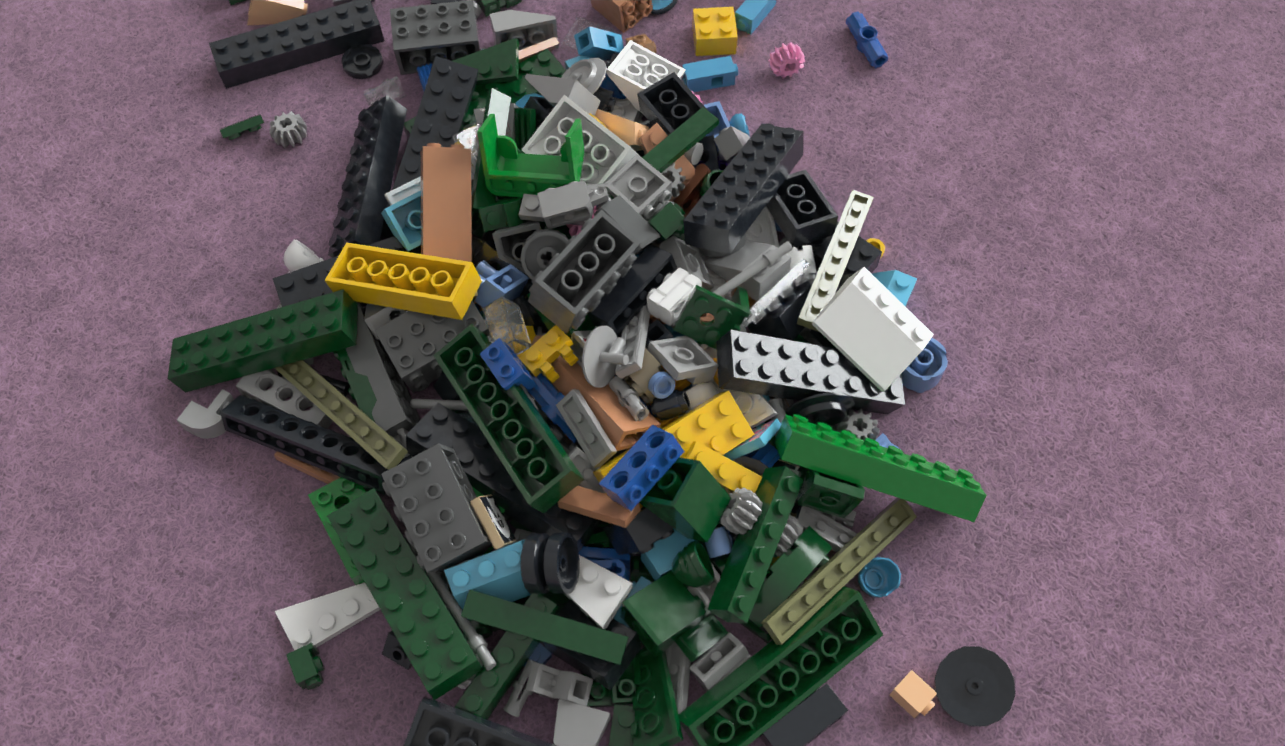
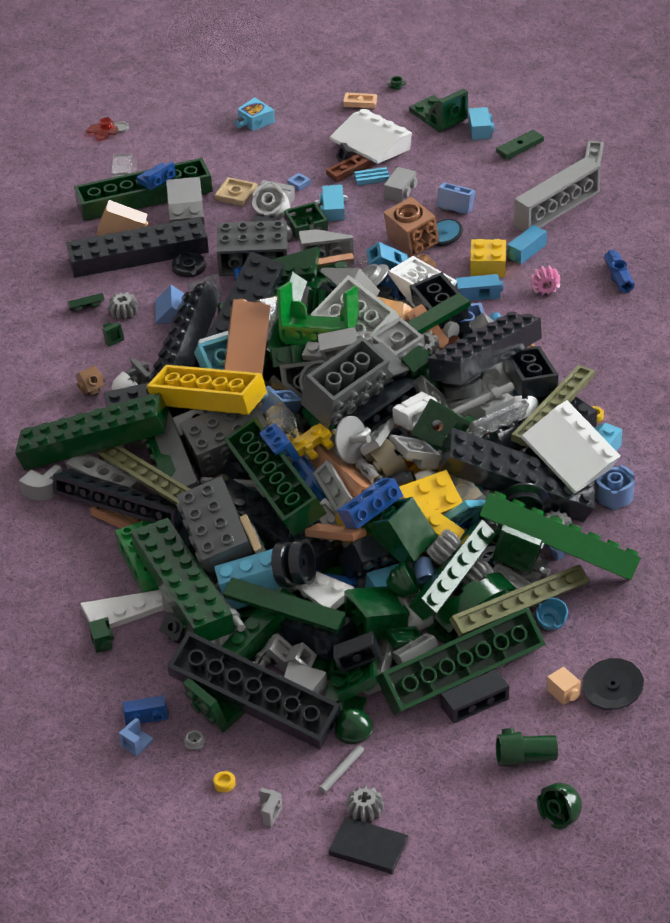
camera: 10 degrees right, 20 degrees down
(251, 243) = (90, 381): none -> medium nougat brick
(279, 172) = (112, 333): none -> dark green tile
(314, 231) = (139, 371): none -> dark grey hips
(343, 123) = (167, 305): none -> medium blue slope
(647, 684) = (356, 652): none -> black brick
(661, 385) = (395, 463): medium blue tile -> none

